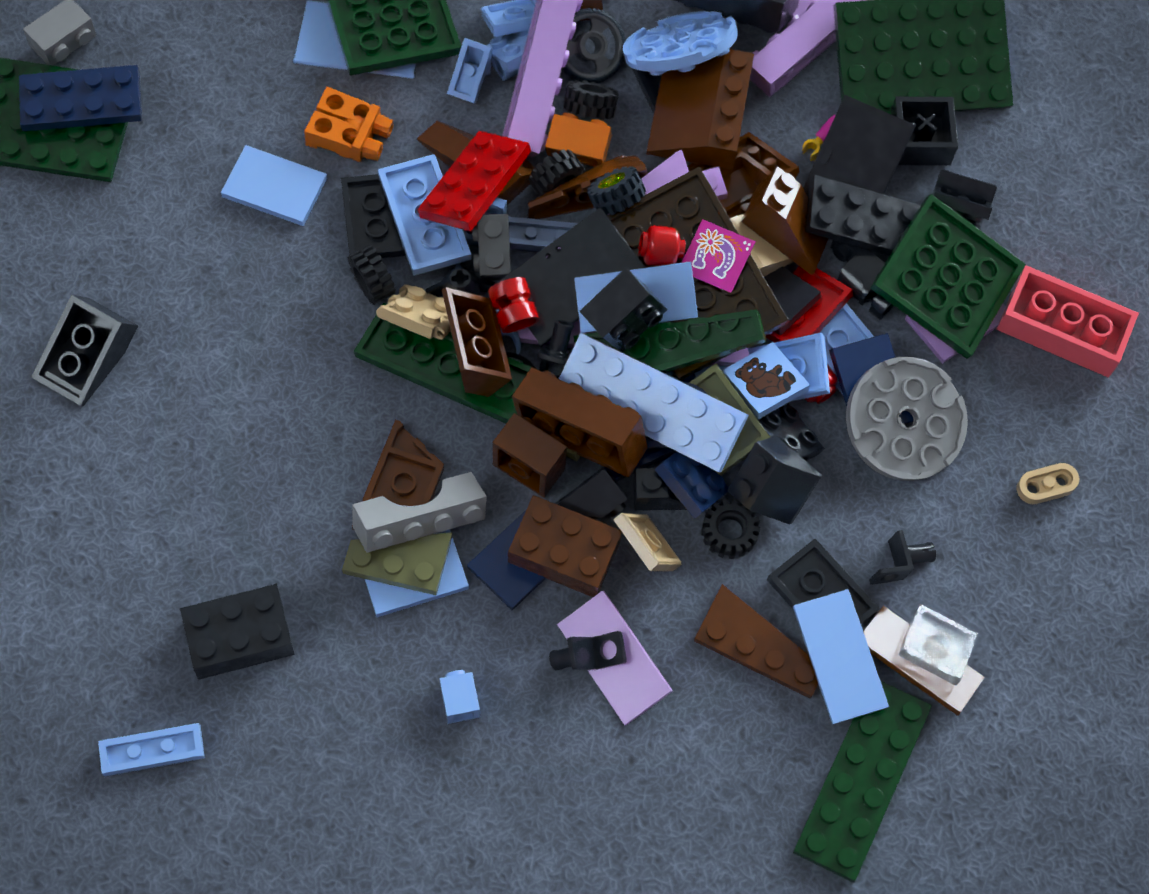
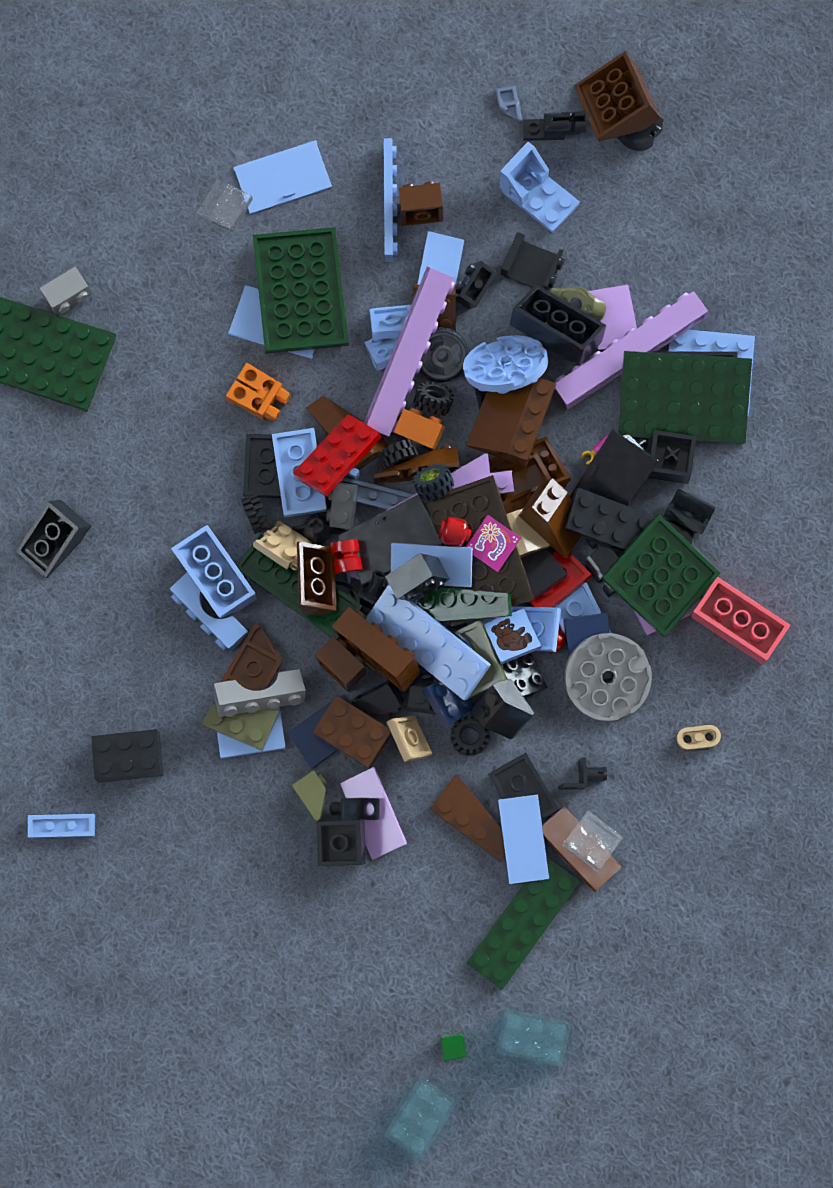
camera: 20 degrees right, 10 degrees up
(80, 98) = (73, 346): dark blue plate -> none
(274, 185) = (199, 430): light blue tile -> none
(328, 358) = (214, 572): none -> light blue slope
(357, 438) = (227, 630): none -> light blue arch
(459, 696) = (265, 823): light blue brick -> none
(470, 70) = (351, 362): light blue slope -> none
(519, 643) = (312, 793): none -> olive slope
(576, 704) = (341, 843): none -> black brick

